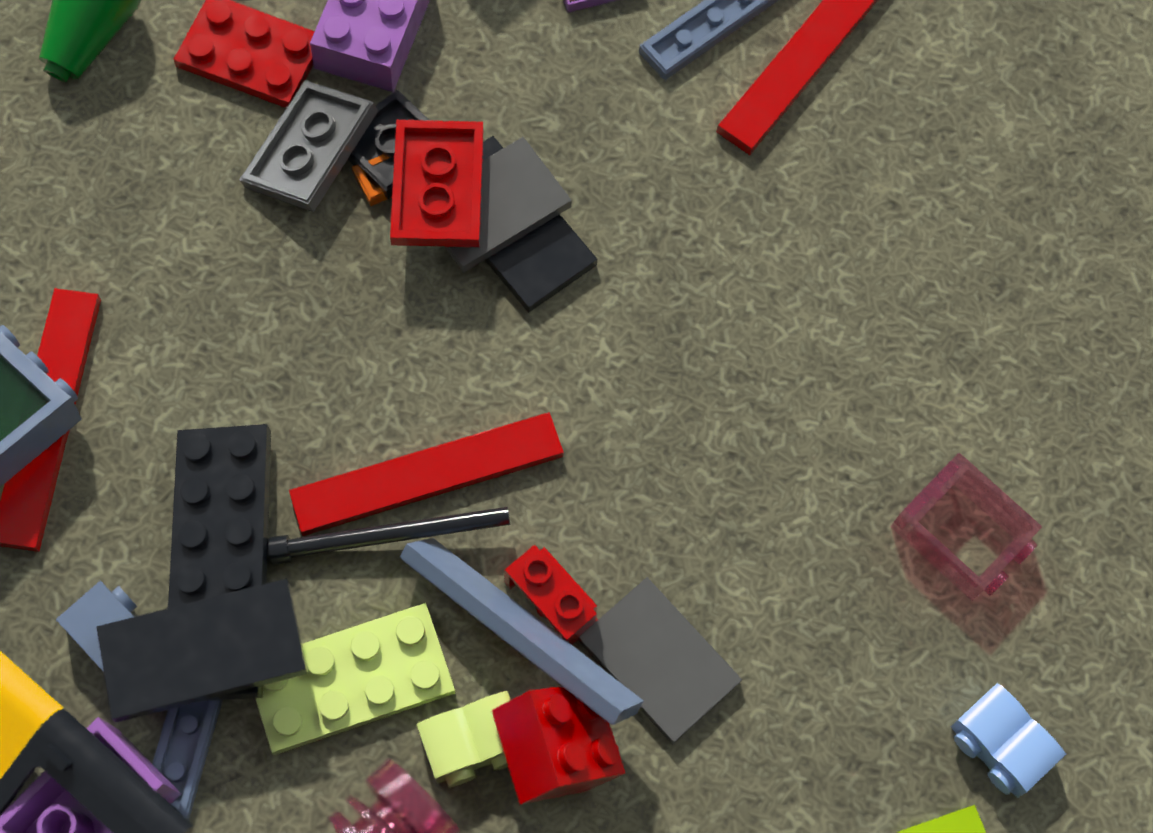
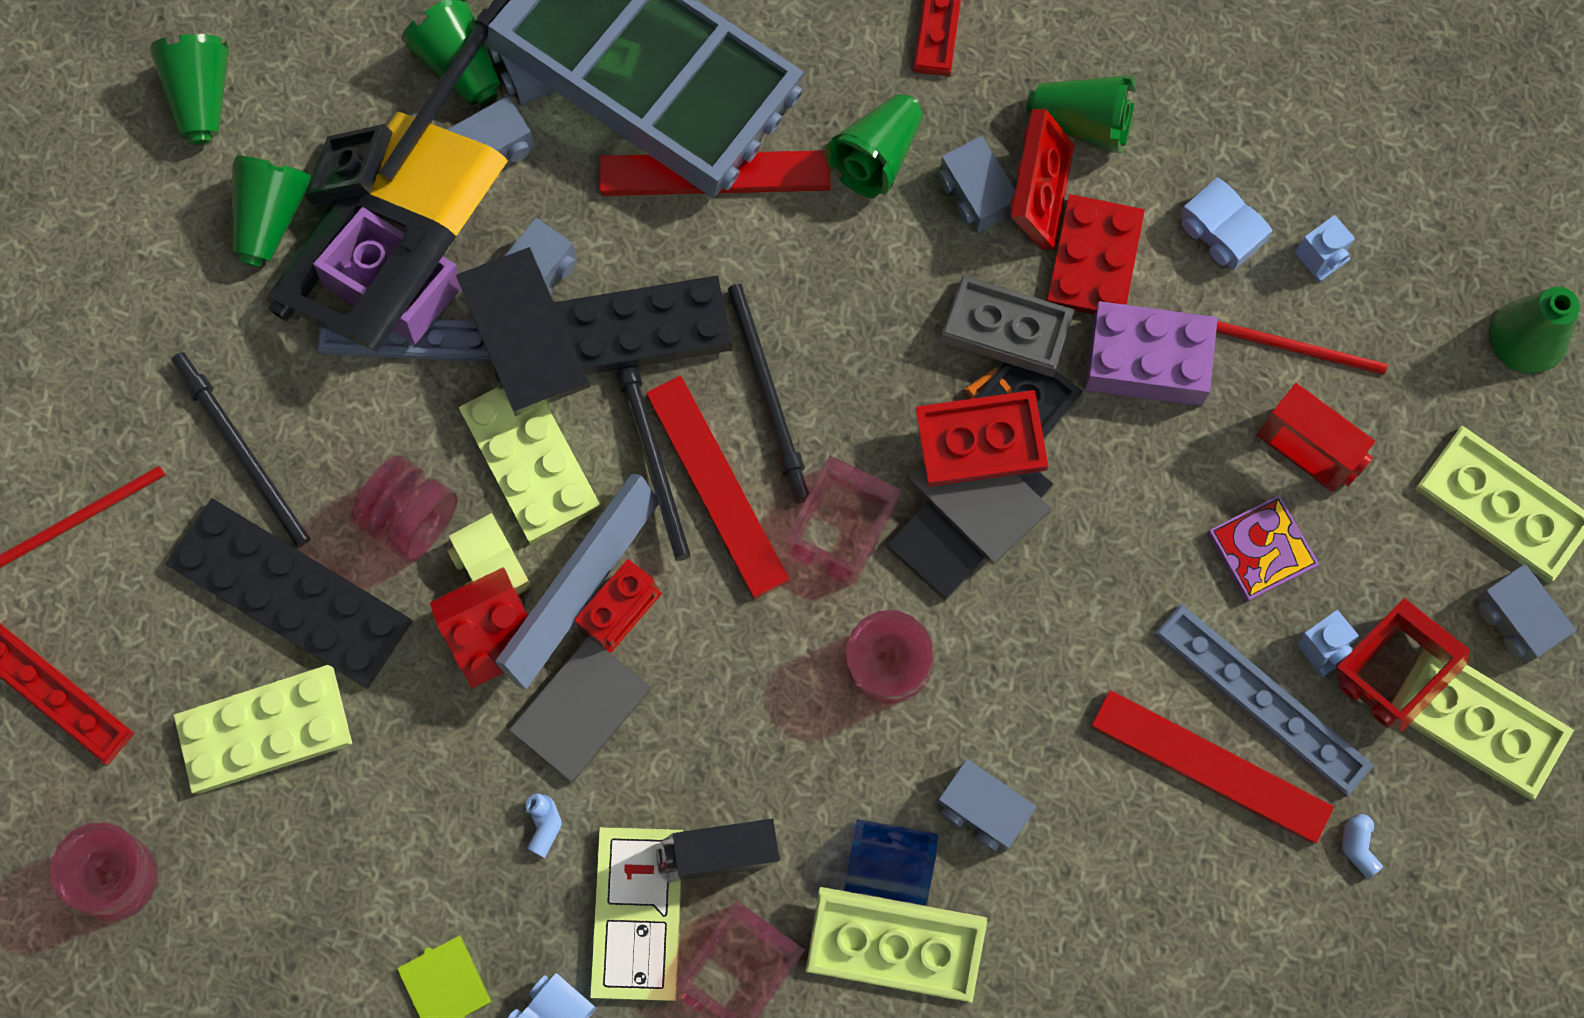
camera: 90 degrees right, 5 degrees up
(68, 234) = (875, 146): none -> green cone
(139, 141) = (977, 184): none -> sand blue brick
(153, 74) = (1042, 179): none -> red plate
(415, 390) = (790, 460): none -> black bar
(463, 313) = (859, 484): none -> clear pink window
(663, 292) = (873, 640): none -> clear pink wheel
(784, 714) = (546, 821): none -> light blue arm
(823, 259) = (985, 807): none -> sand blue brick
(849, 520) = (718, 850): none -> black brick
(881, 361) = (891, 862): none -> clear blue bracket
(894, 630) = (634, 918): none -> tile
(954, 369) = (896, 944): none -> yellowish green tile

